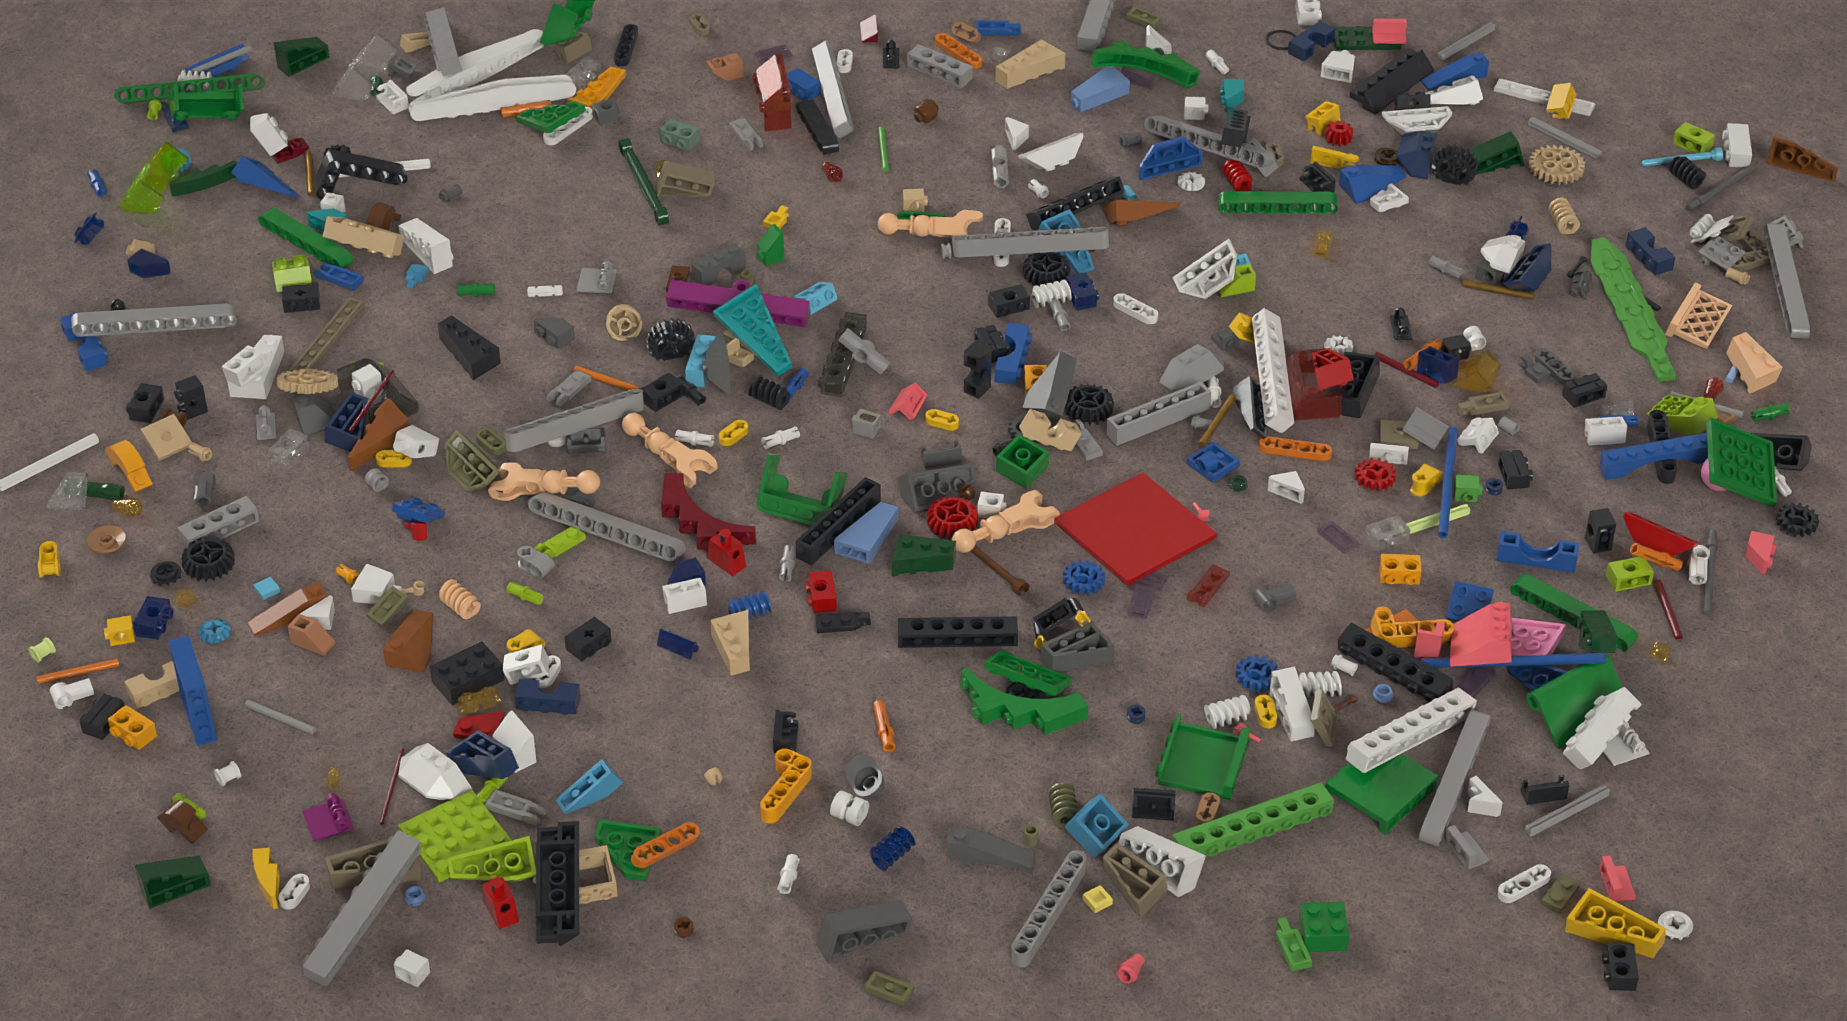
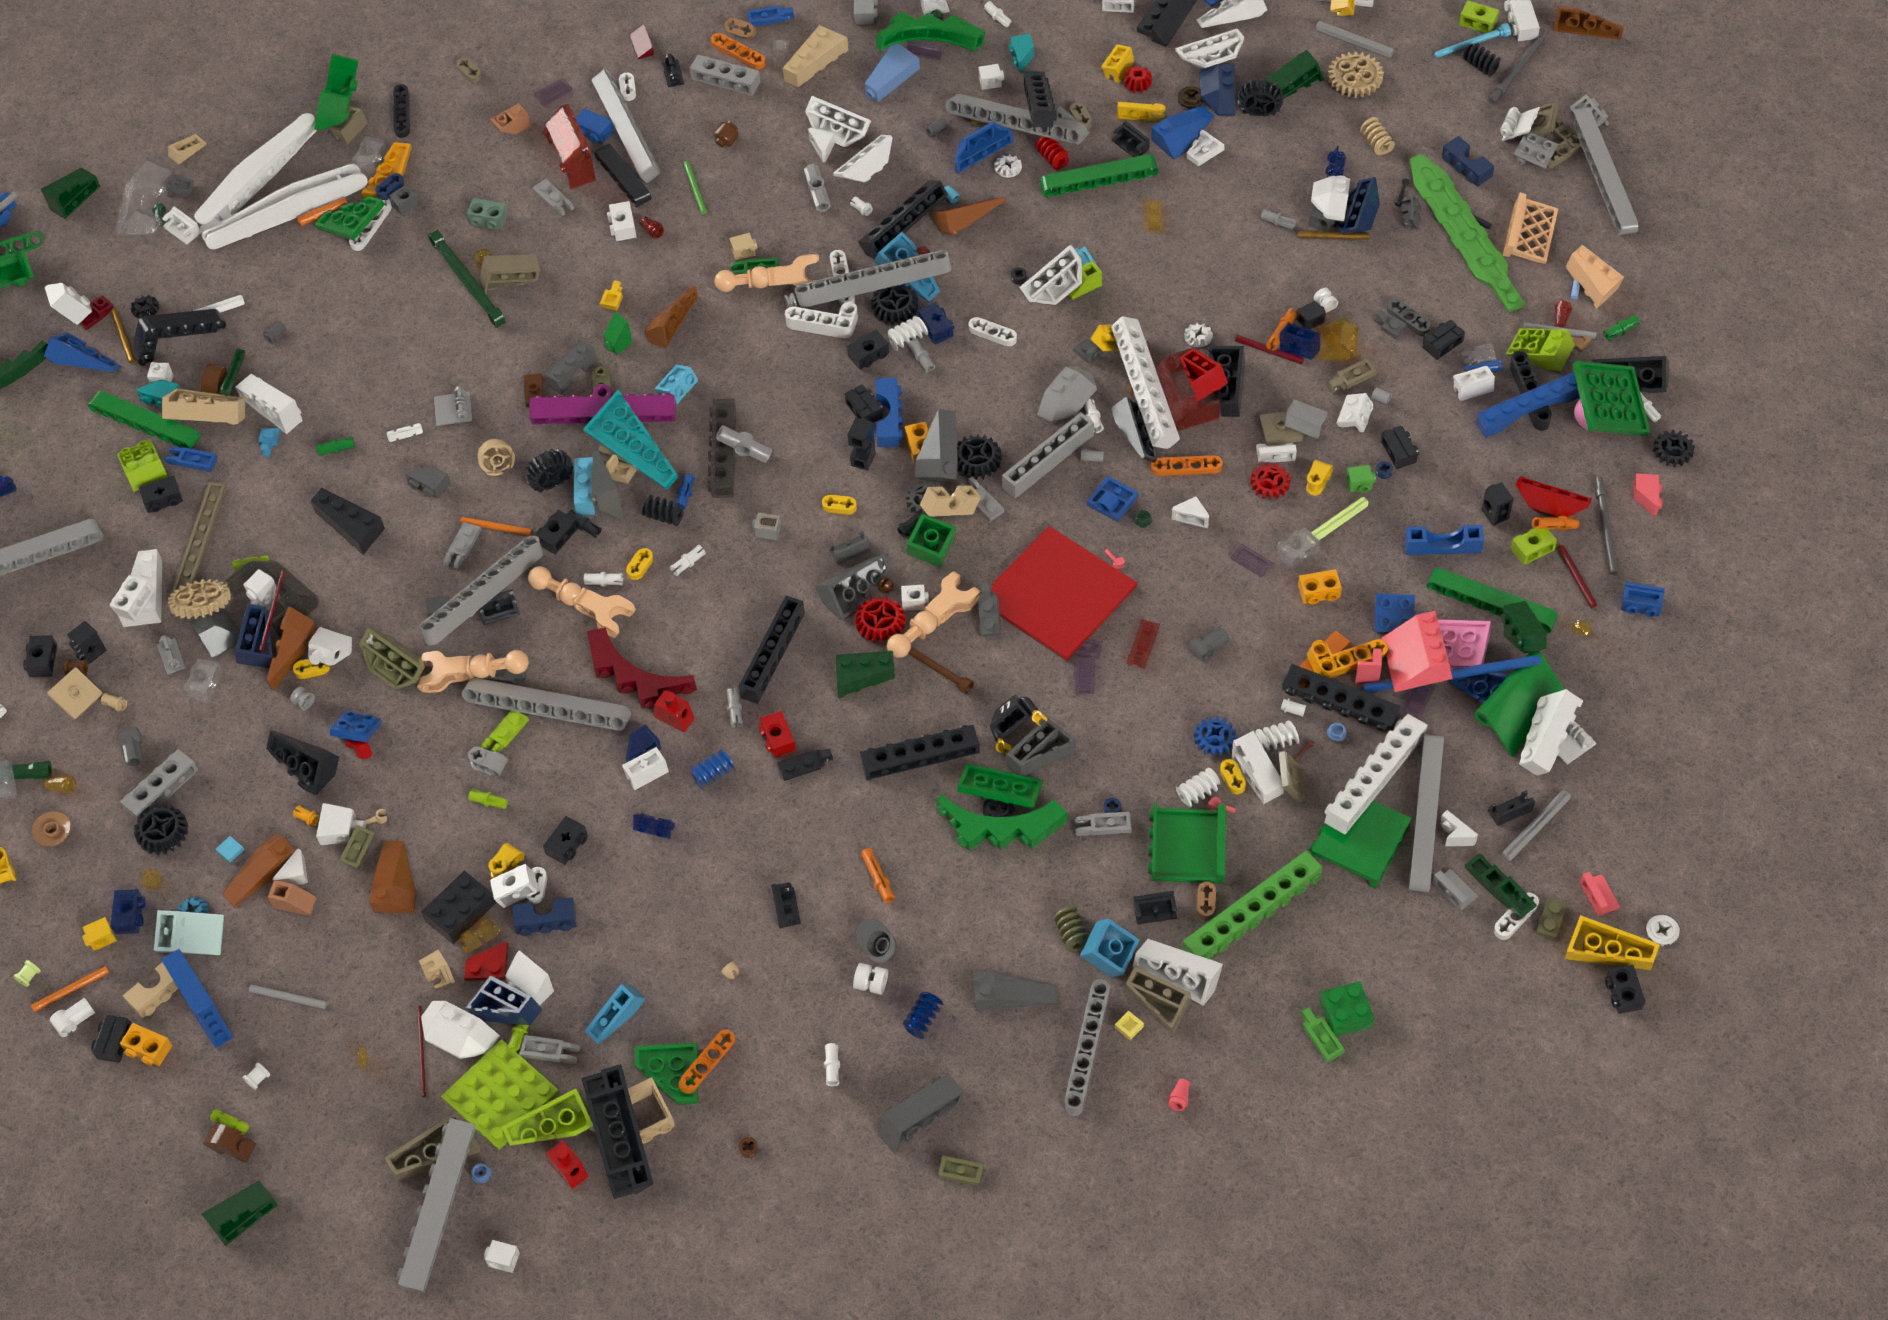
camera: 10 degrees left, 15 degrees up
(131, 463) = (48, 734): light orange arch -> none
(157, 573) = (114, 854): black gear -> none
(211, 643) = (188, 932): none -> light aqua slope
(267, 875) = (330, 1184): yellow slope -> none
(292, 890) = (366, 1195): white beam -> none
(328, 818) = (370, 1104): magenta hinge -> none
(361, 530) = (308, 762): none -> black wedge
(400, 214) = (232, 372): none -> dark green axle
(428, 716) = (435, 967): none -> tan hinge
(442, 42) = (214, 150): light grey brick -> none
(459, 599) = (426, 822): light nougat piece -> none
(491, 441) = (405, 625): olive plate -> none
(594, 96) = (389, 186): none -> dark blue beam
(732, 641) = (707, 812): tan wedge -> none
(777, 501) = (723, 637): green windscreen -> none
(796, 774) = (800, 969): light orange beam -> none
(804, 161) = (622, 220): none -> white brick
(826, 244) = (669, 320): none -> dark orange wedge
(867, 534) = (803, 657): medium blue slope -> none
(909, 401) = (801, 490): coral panel -> none
(973, 273) = (823, 323): none -> white beam
(1030, 835) = (1049, 974): olive hinge -> none
(1041, 120) = (844, 124): none -> white wedge
(1061, 529) = (989, 611): none -> dark grey hinge
(1085, 577) = (1024, 662): blue gear -> none
(1122, 725) = (1104, 824): none -> light grey hinge
(1174, 268) = (1016, 271): none -> black bush
(1216, 422) = (1106, 450): pearl gold bar -> none
(1400, 325) = (1251, 298): black hinge -> none
(1402, 101) = (1191, 30): black brick -> none
(1447, 483) = (1341, 477): blue piece -> none
(1514, 853) = (1500, 886): none -> dark green slope
(1698, 565) = (1594, 521): white piece -> none
(1730, 639) = (1642, 599): none -> blue hinge
(1741, 277) = (1560, 174): tan pin -> none

